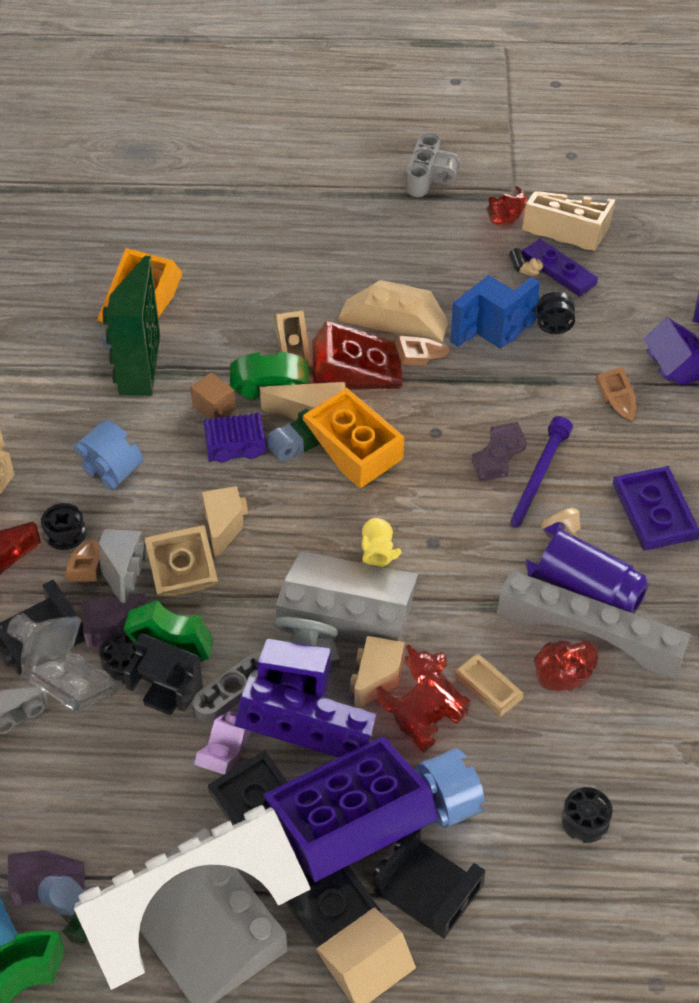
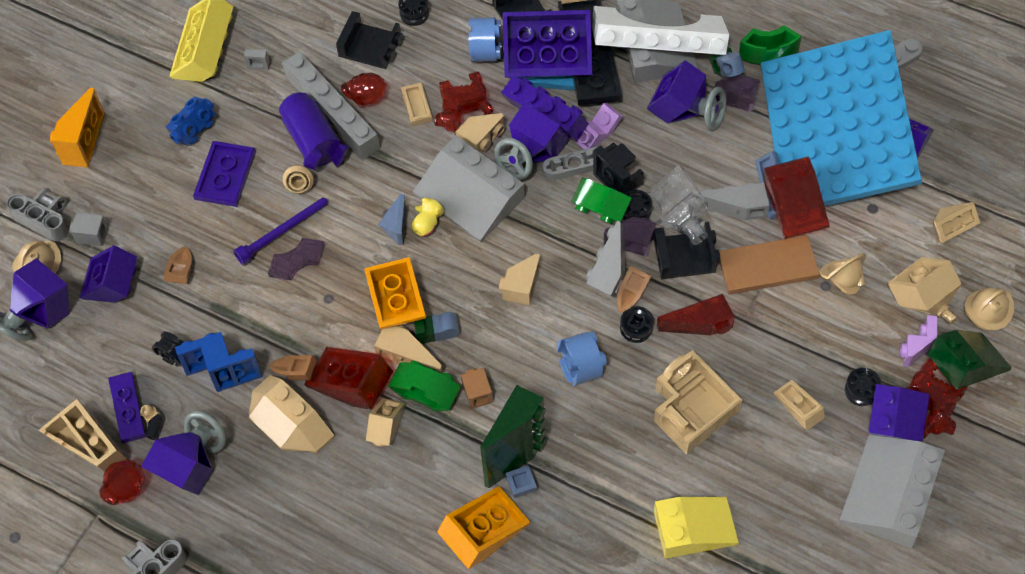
camera: 150 degrees left, 10 degrees up
(121, 816) = (683, 96): none -> dark purple piece
(181, 562) = (567, 257): tan slope -> none
(234, 437) = (479, 344): dark purple brick -> none
(413, 527) = (394, 220): none -> sand blue slope
(461, 228) = (184, 456): none -> dark purple piece
(612, 740) = (368, 43): none -> black panel

